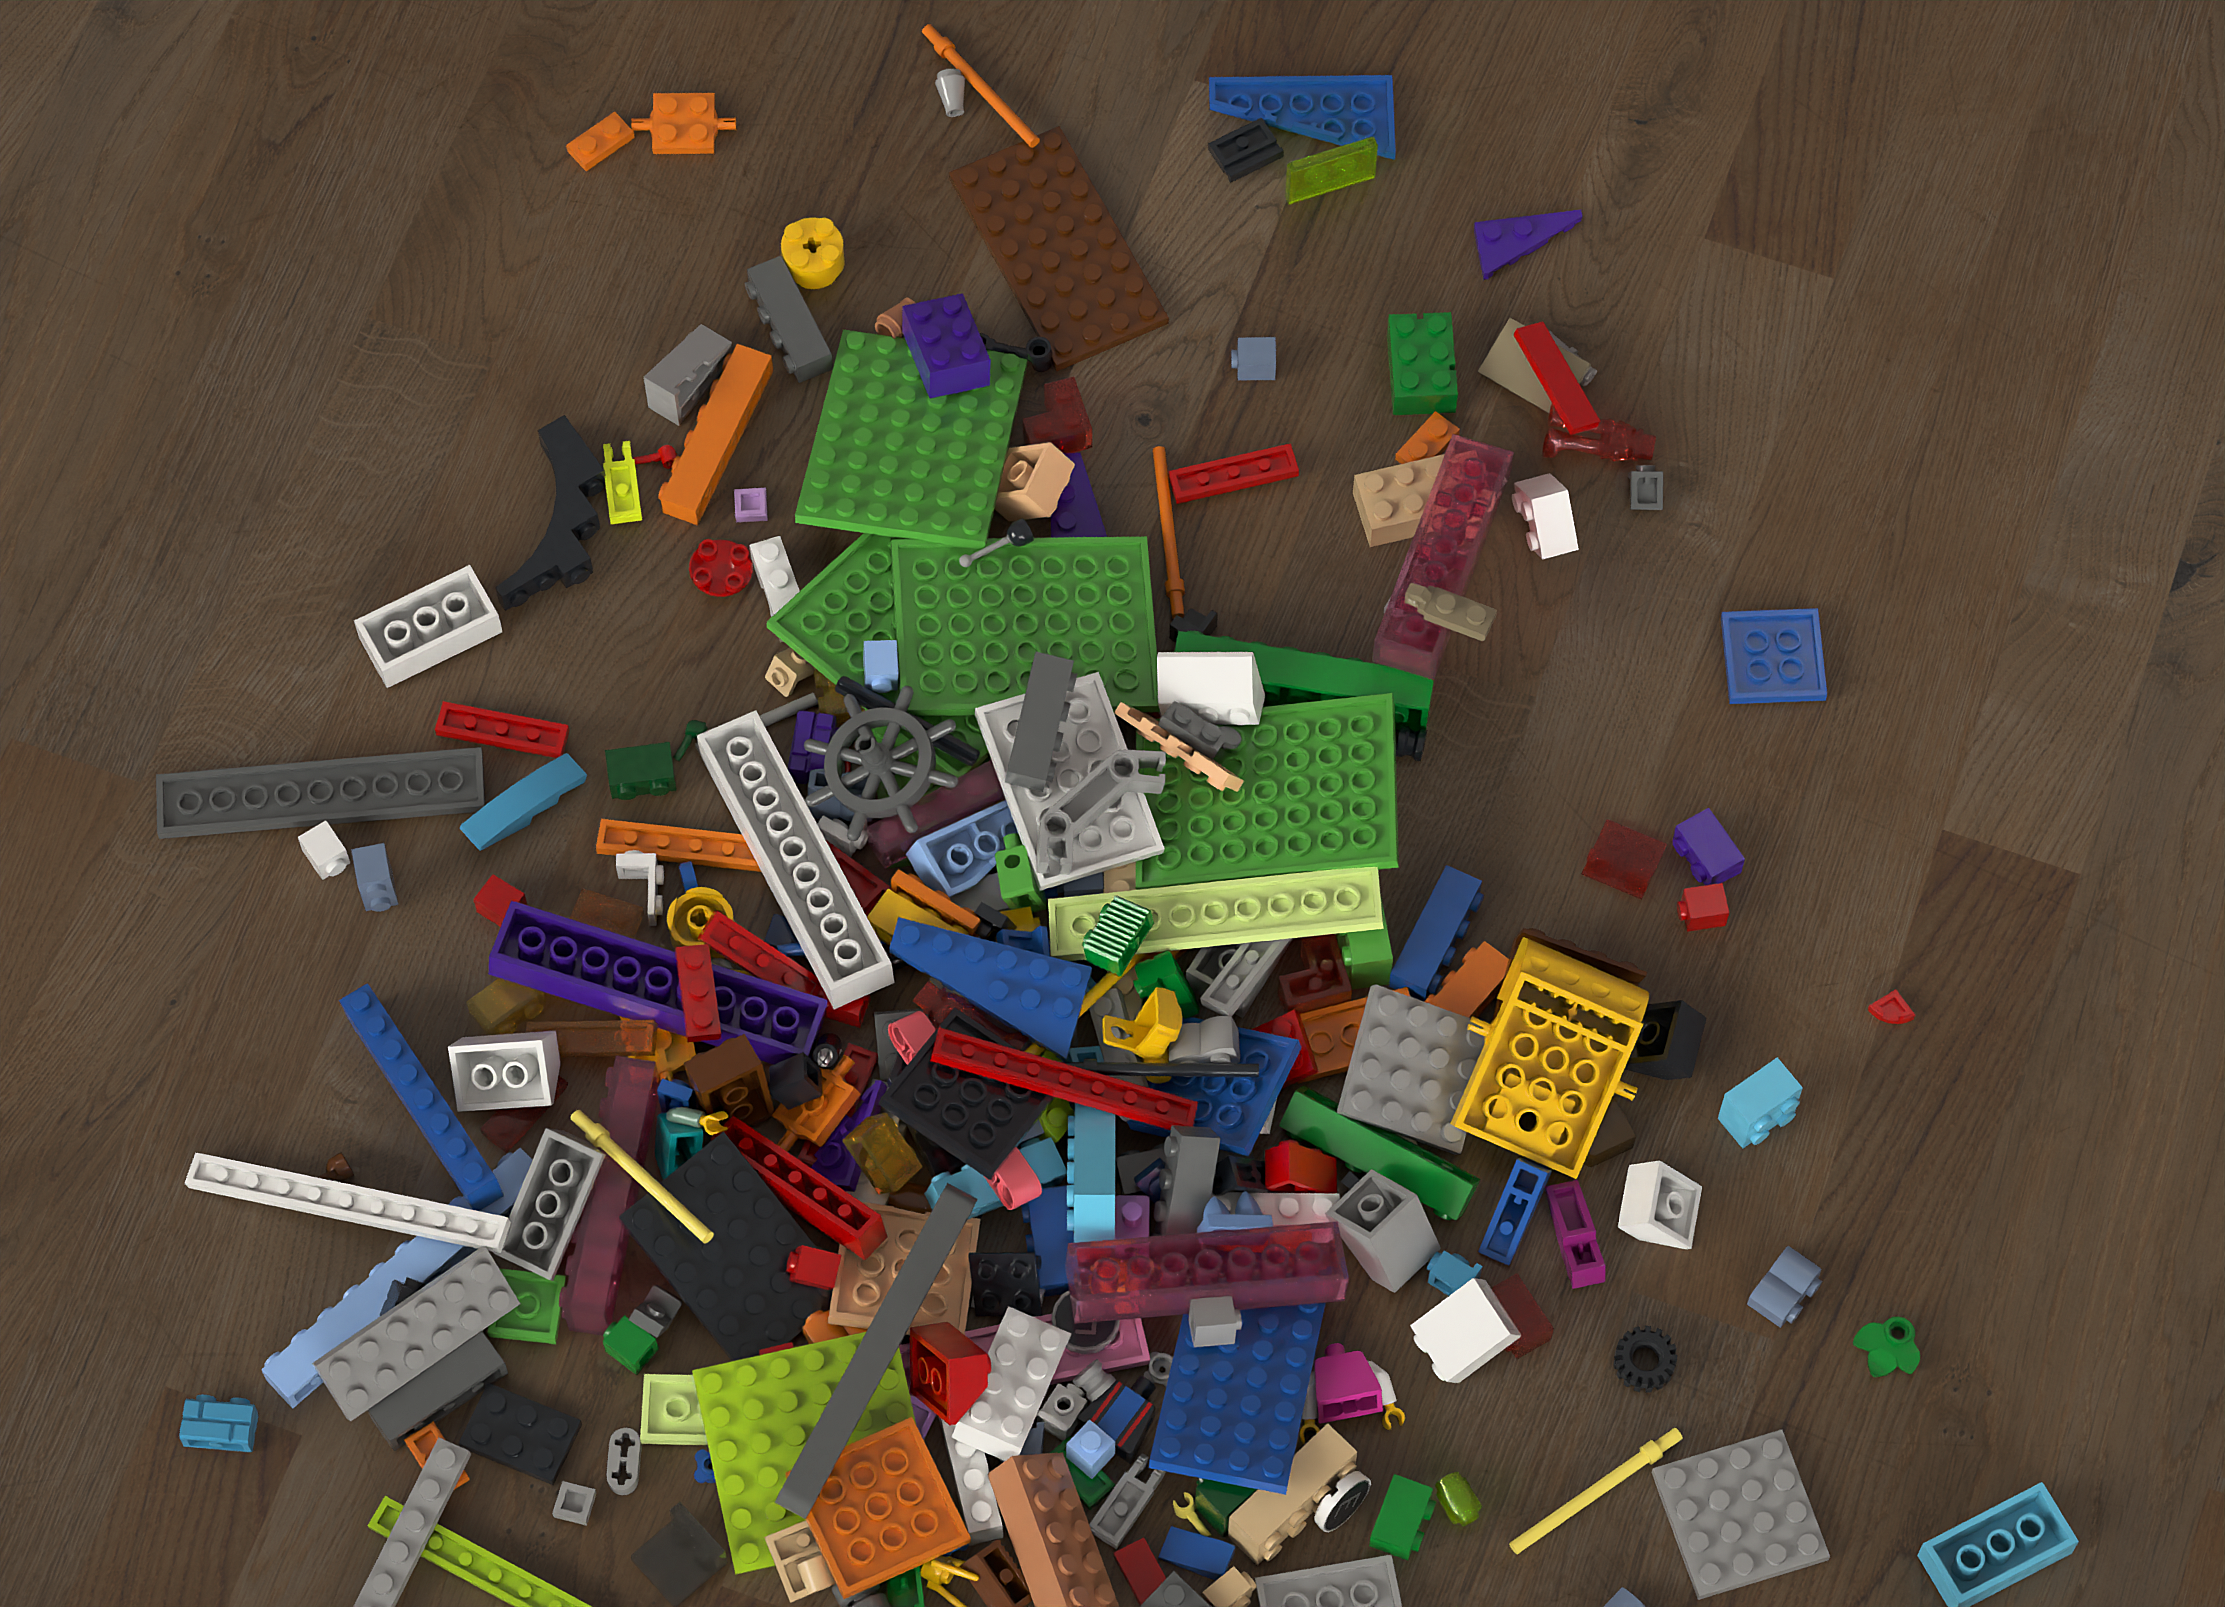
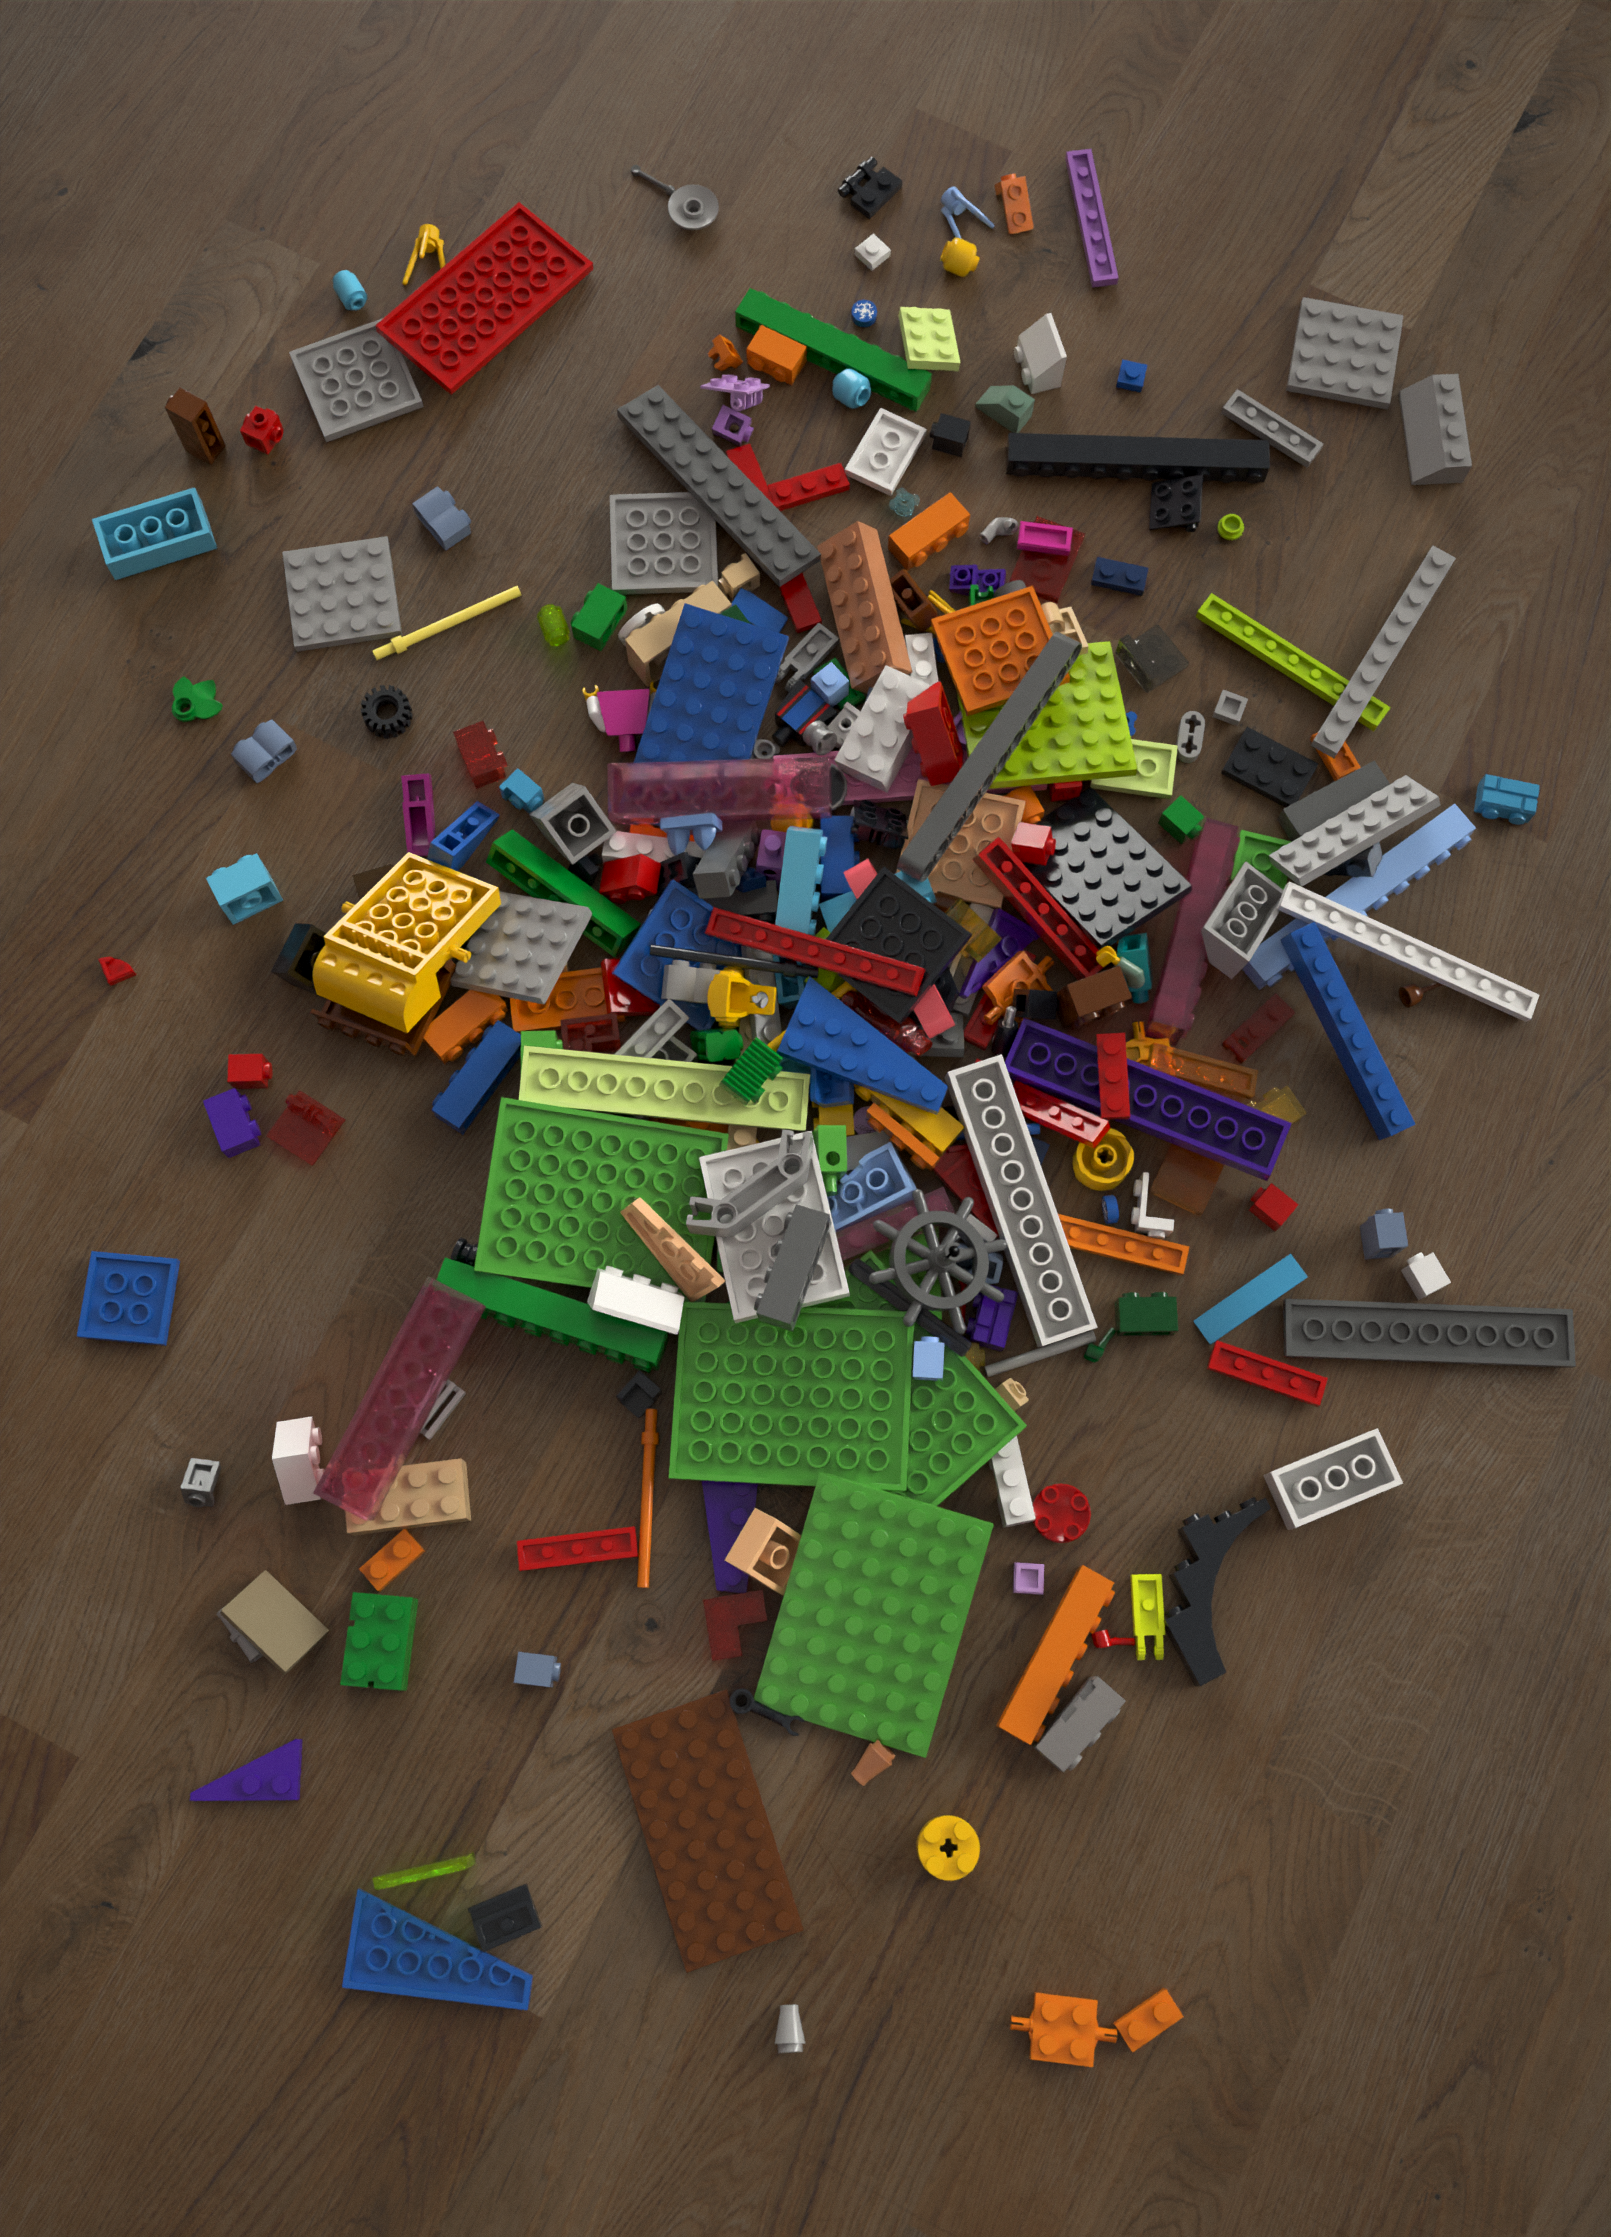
camera: 175 degrees left, 10 degrees up
(505, 1070) = (1275, 1050): white slope -> none
(599, 1137) = (1204, 956): light yellow bar -> none
(656, 1311) = (1164, 835): dark grey bracket -> none
(675, 1095) = (1136, 1005): blue plate -> none
(789, 319) = (977, 1775): dark grey brick -> none
(946, 49) = (789, 2087): orange bar -> none
(946, 345) = (830, 1709): dark purple brick -> none
(992, 922) = (854, 1115): black tile -> none
(1017, 534) = (789, 1481): hinge -> none
(1198, 732) = (653, 1260): dark grey hinge -> none
(1213, 1321) = (719, 747): light grey brick -> none
(1451, 610) = (402, 1320): dark tan hinge -> none
(1465, 1331) = (522, 738): white brick -> none
(1556, 378) = (255, 1592): red tile -> none
(1616, 440) = (218, 1536): clear red piece -> none
(1659, 1205) = (347, 826): white slope -> none

